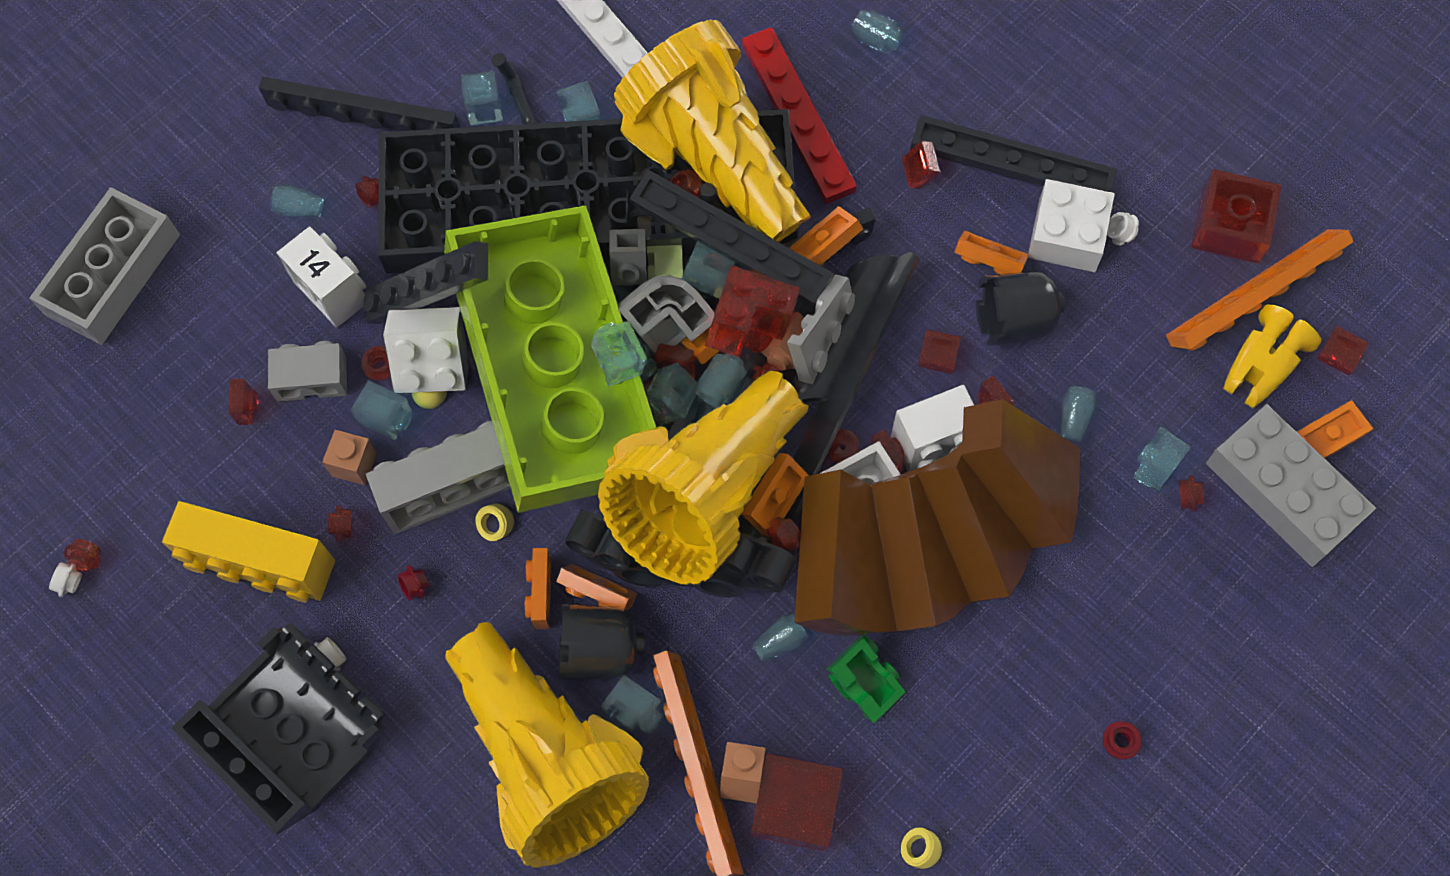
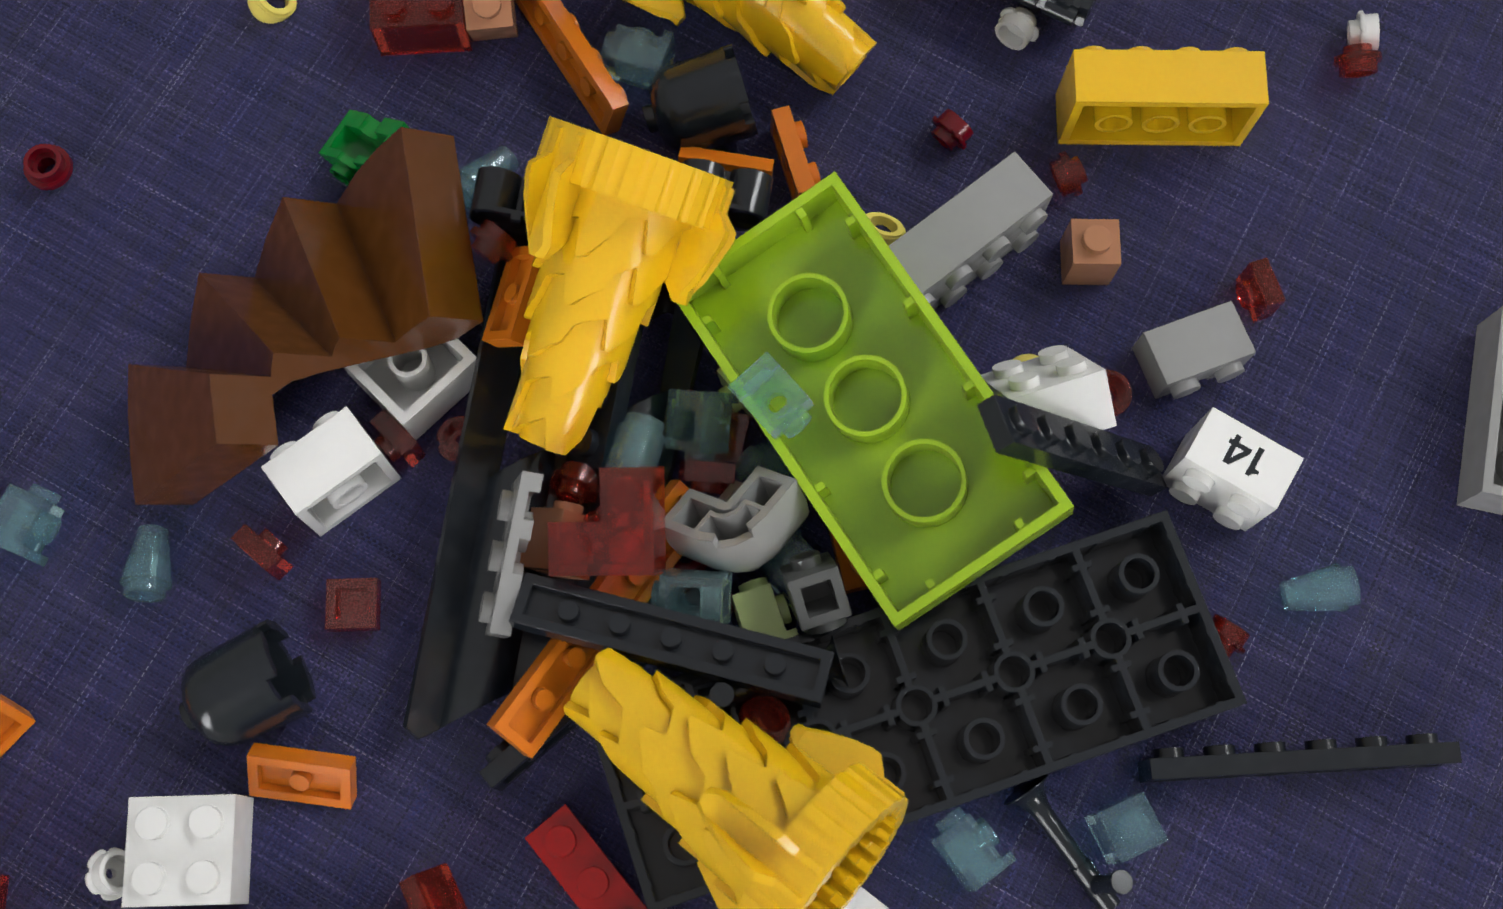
camera: 160 degrees right, 5 degrees up
(382, 410) = (1075, 322): clear light blue brick -> none

